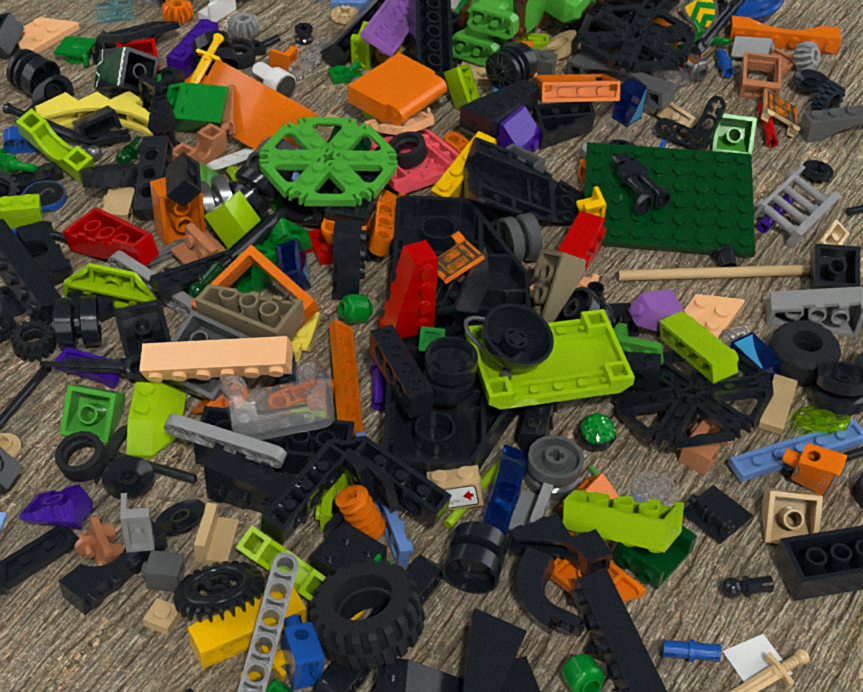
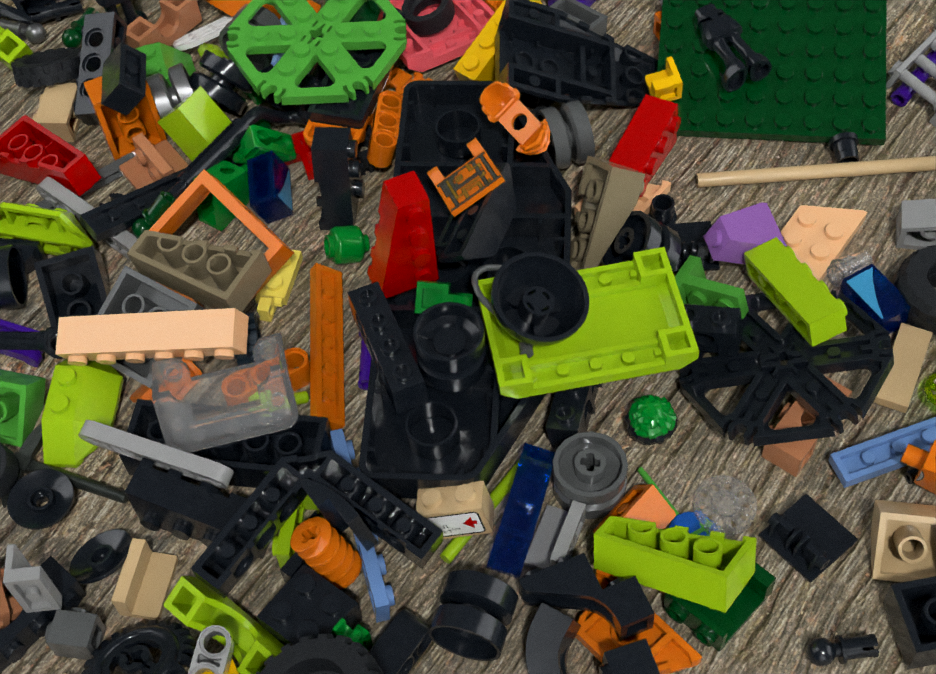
camera: 10 degrees right, 10 degrees up
(474, 212) = (502, 104): none -> orange piece

